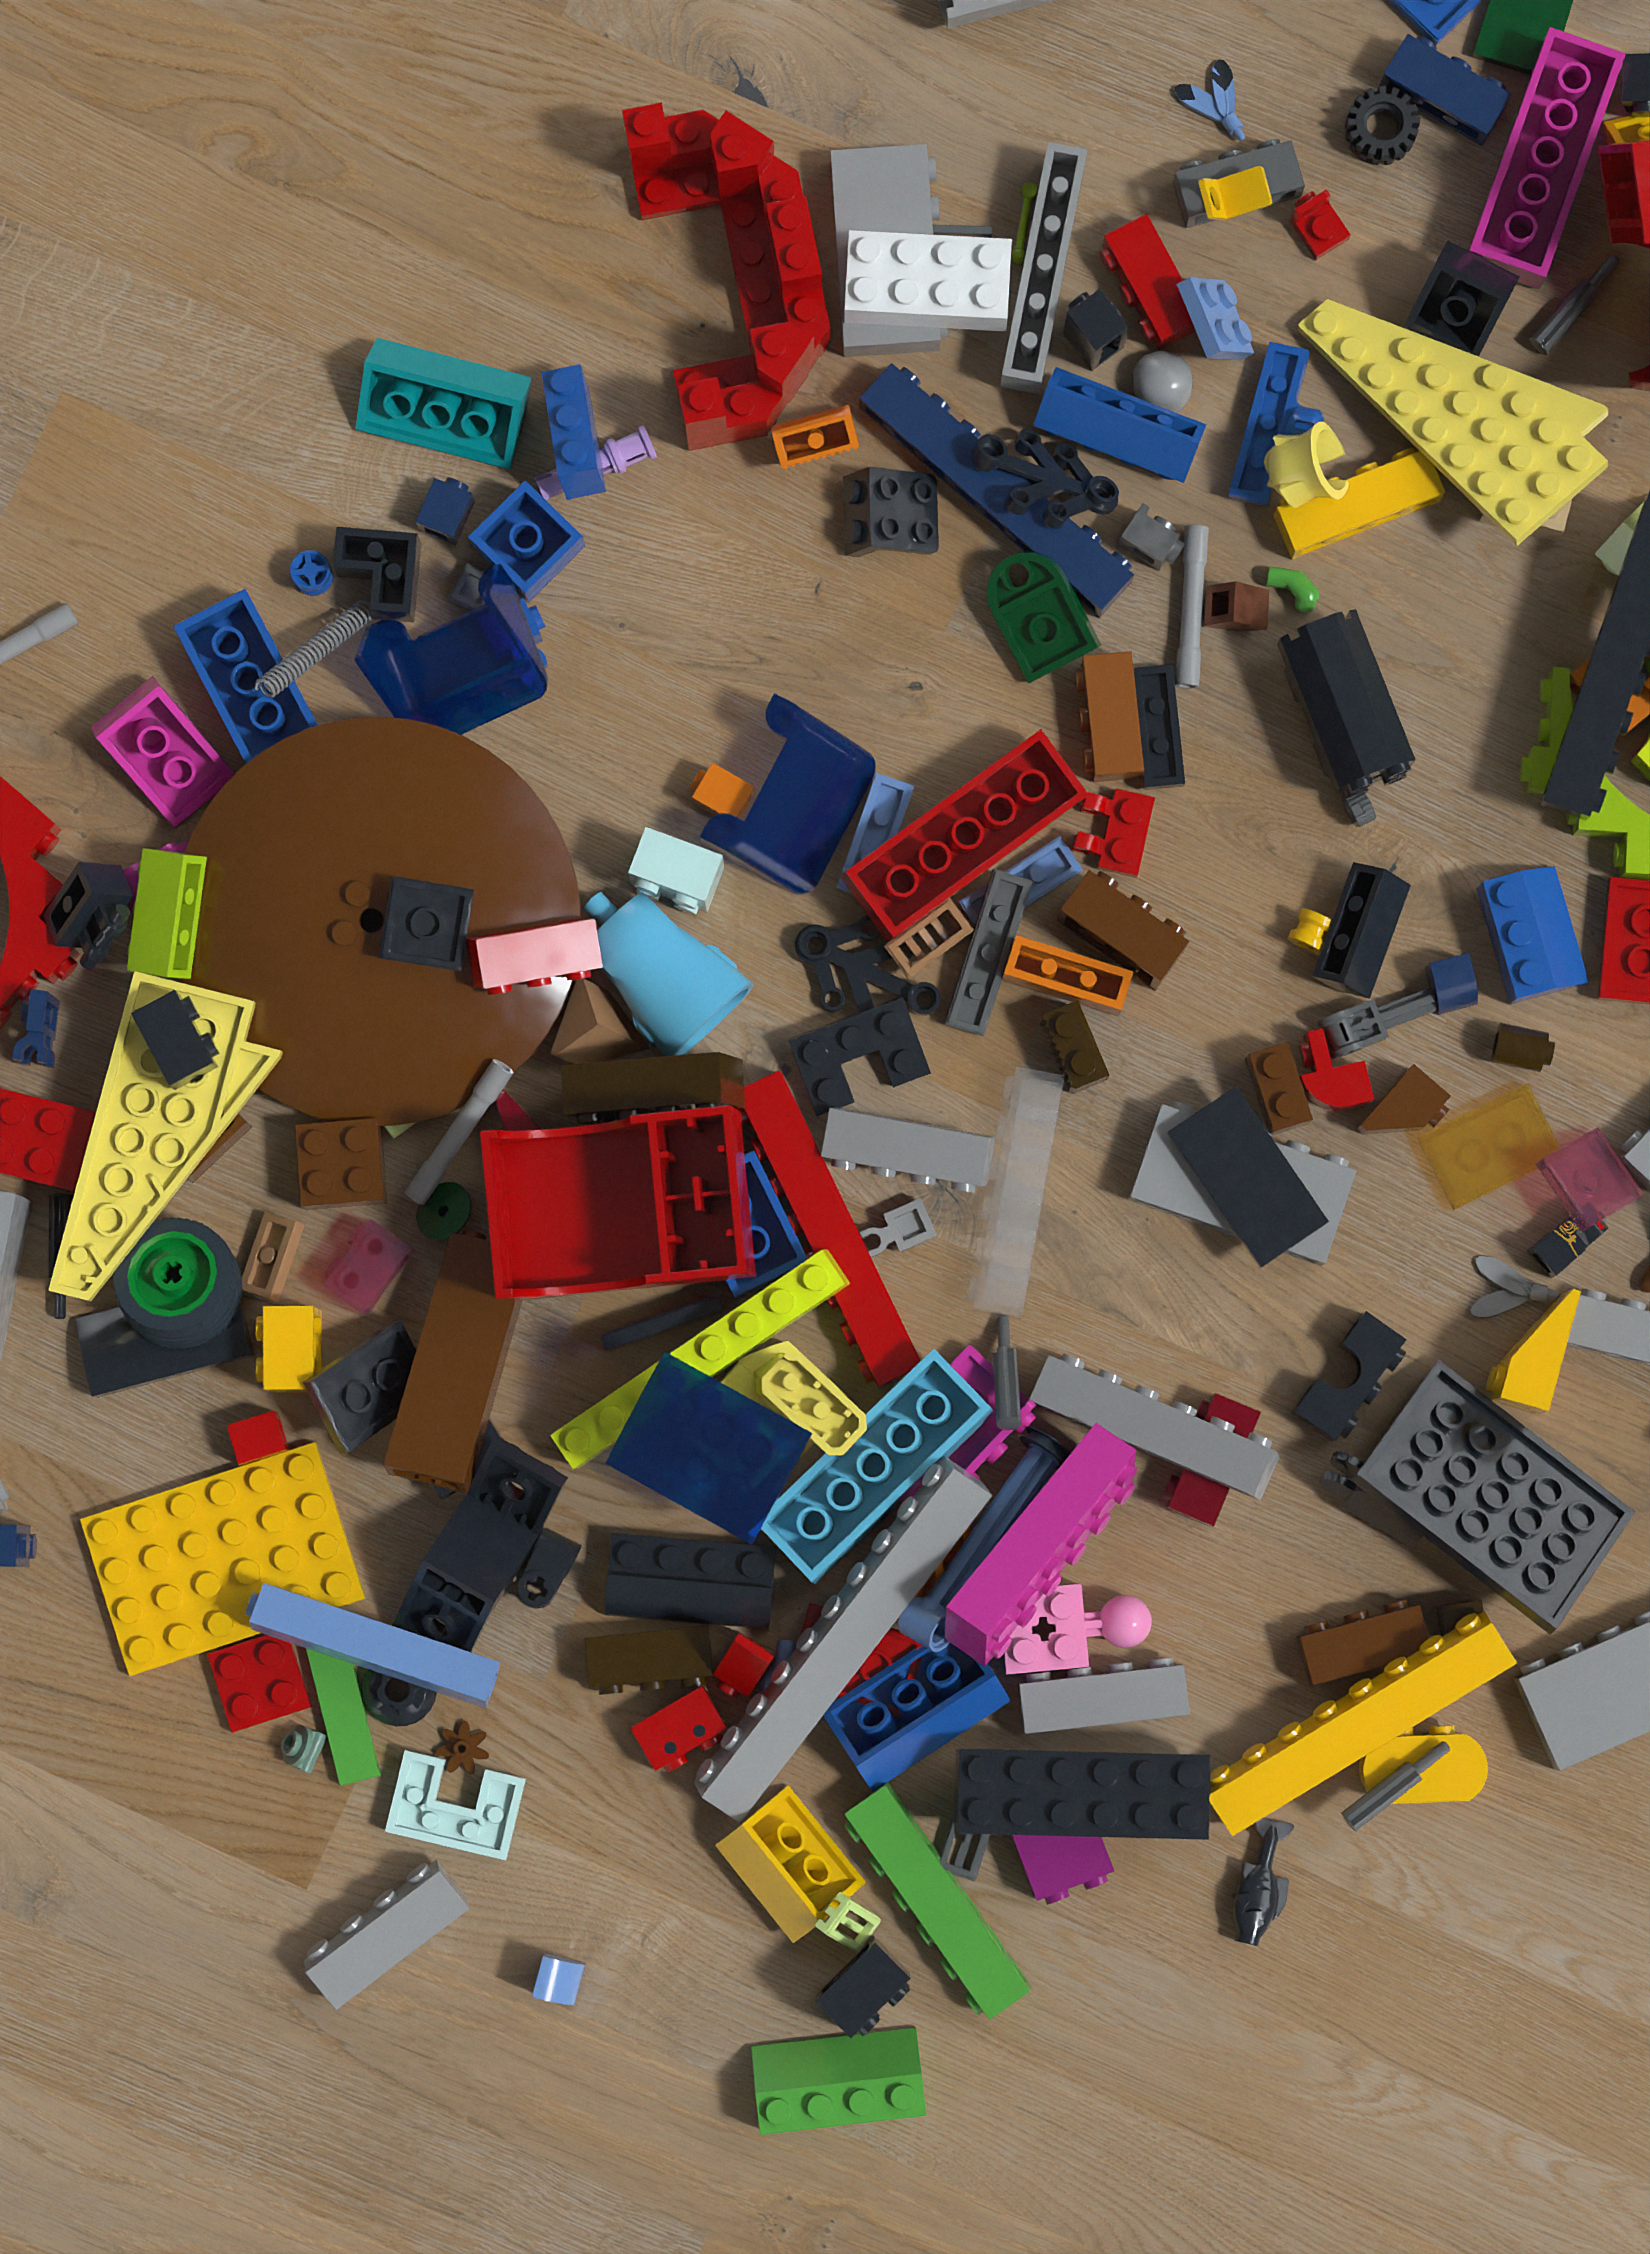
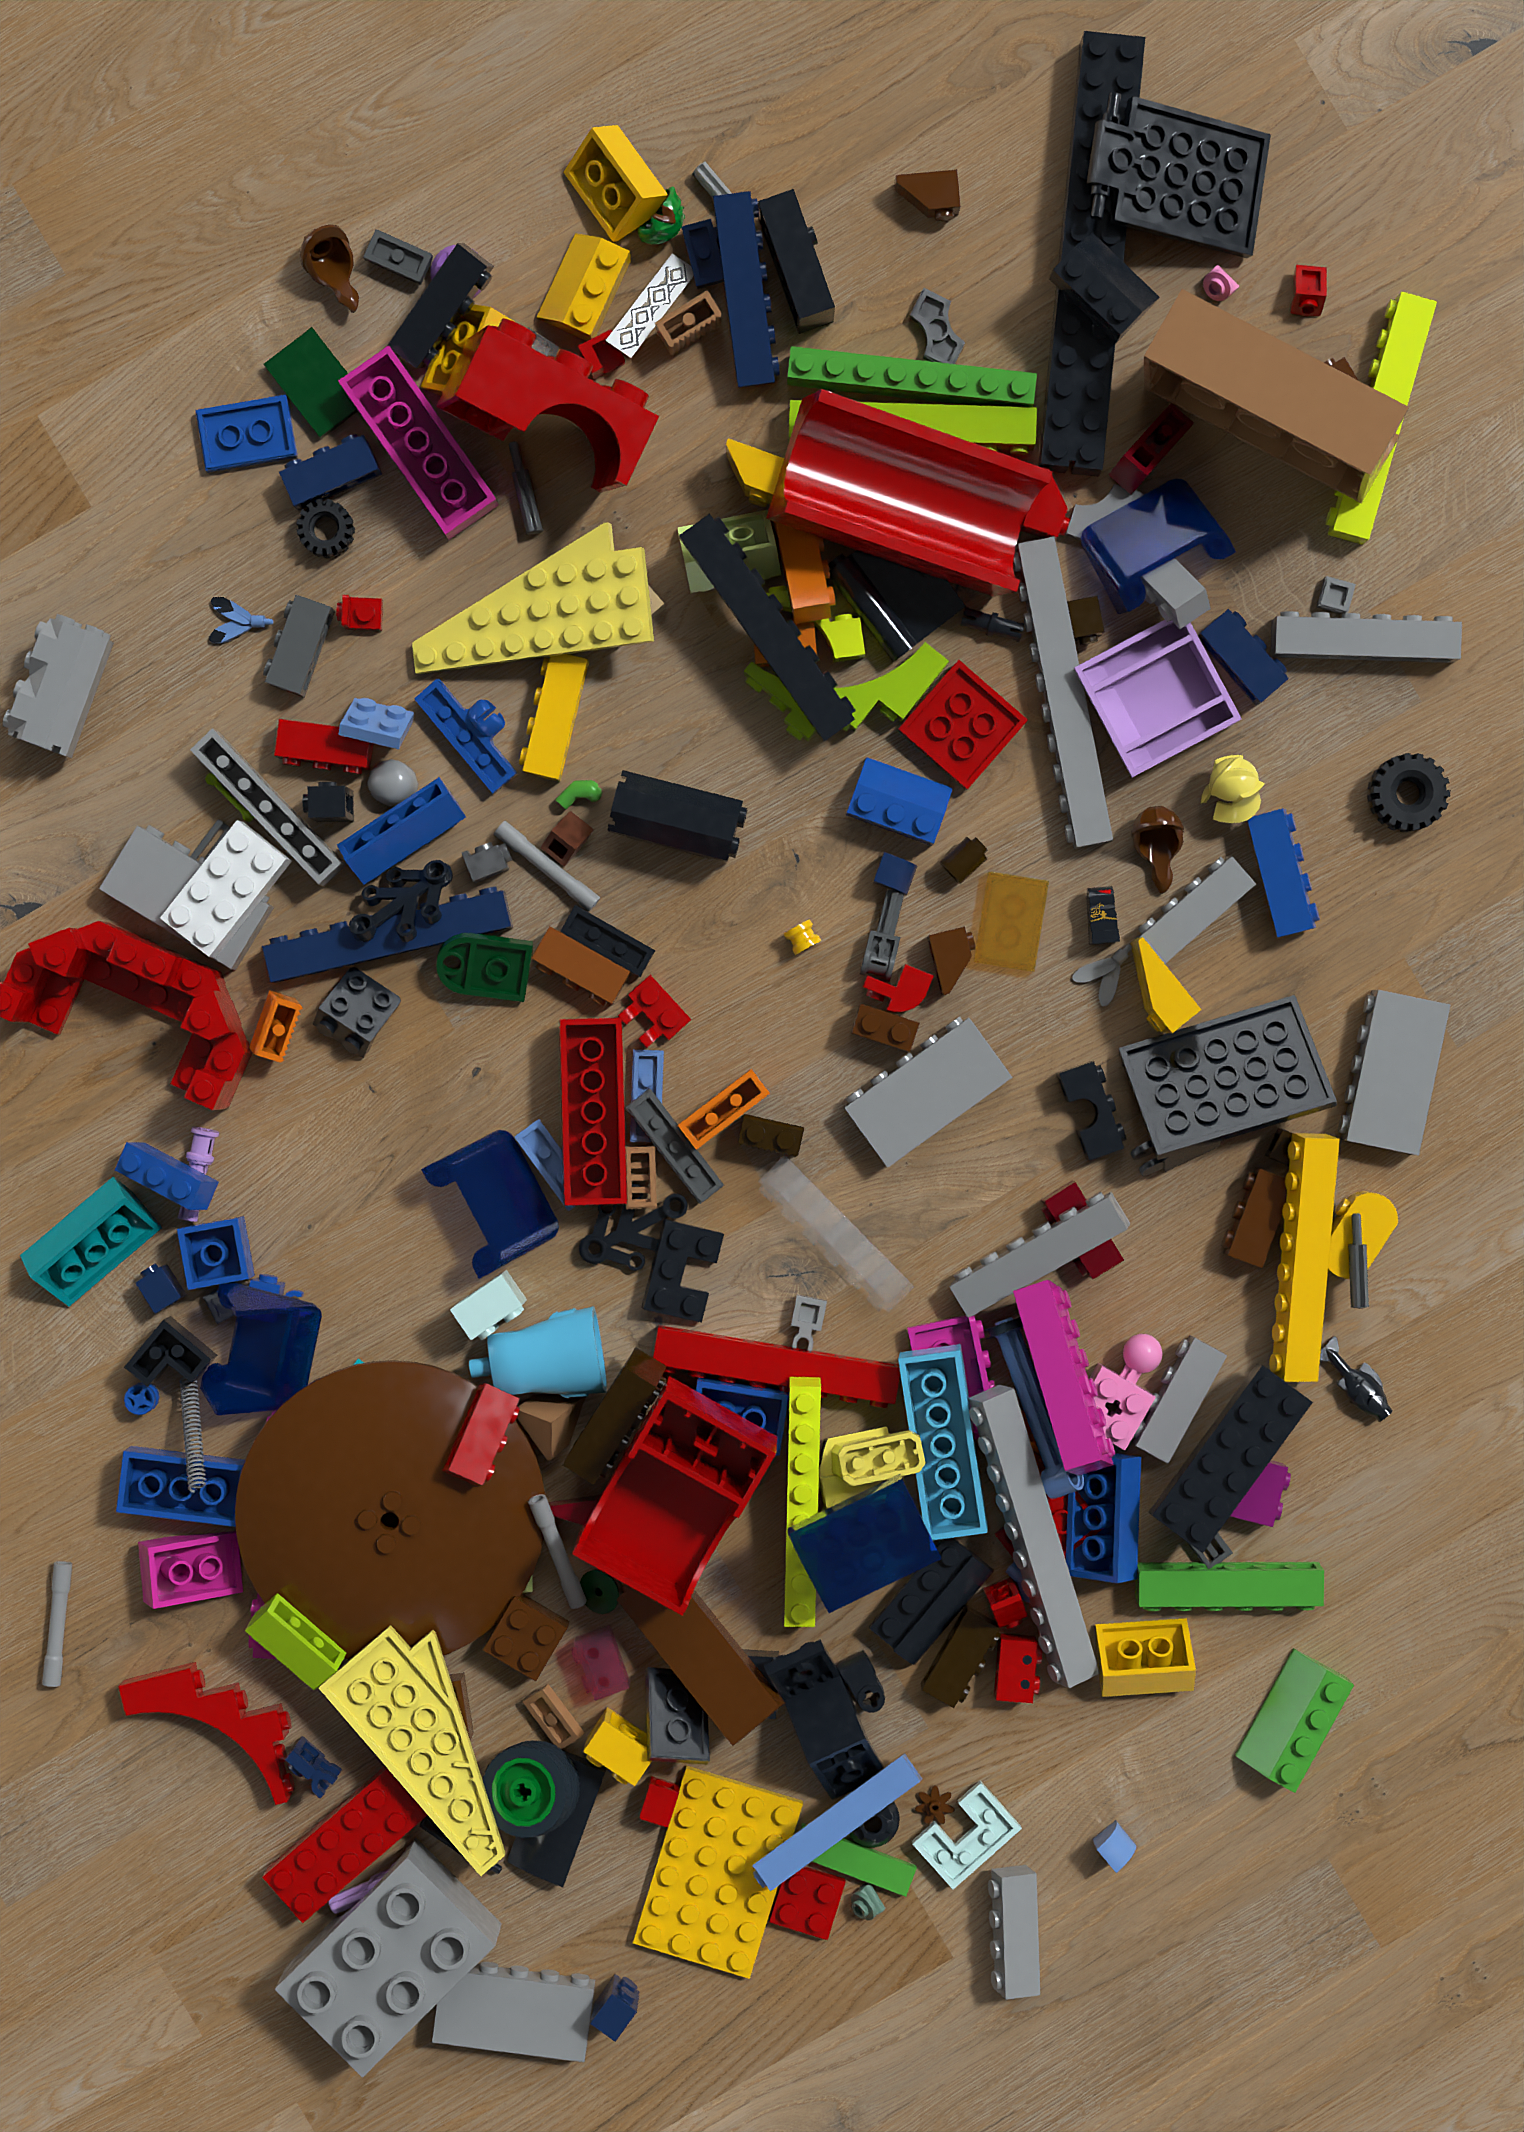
camera: 55 degrees left, 5 degrees up
(90, 910) = (260, 1685): black brick -> none
(175, 1039) = (380, 1694): black brick -> none
(426, 923) = (416, 1490): black tile -> none
(661, 1323) = (762, 1508): black tile -> none
(721, 792) = (460, 1241): orange brick -> none
(839, 1916) = (1203, 1644): yellowish green tile -> none
(864, 1988) = (1251, 1668): black brick -> none
(907, 1147) = (761, 1283): light grey brick -> none
(1006, 1379) = (946, 1323): dark grey axle -> none
(1123, 928) = (719, 1054): reddish brown brick -> none
(1235, 194) = (306, 656): yellow bracket -> none
(1248, 1177) = (927, 1088): black tile -> none
(1296, 468) = (506, 744): light yellow helmet -> none
(1359, 809) = (747, 853): dark grey axle -> none
(1361, 930) = (823, 907): black brick -> none
(1461, 299) = (473, 561): black brick -> none
(1589, 1179) = (1075, 877): clear pink tile -> none

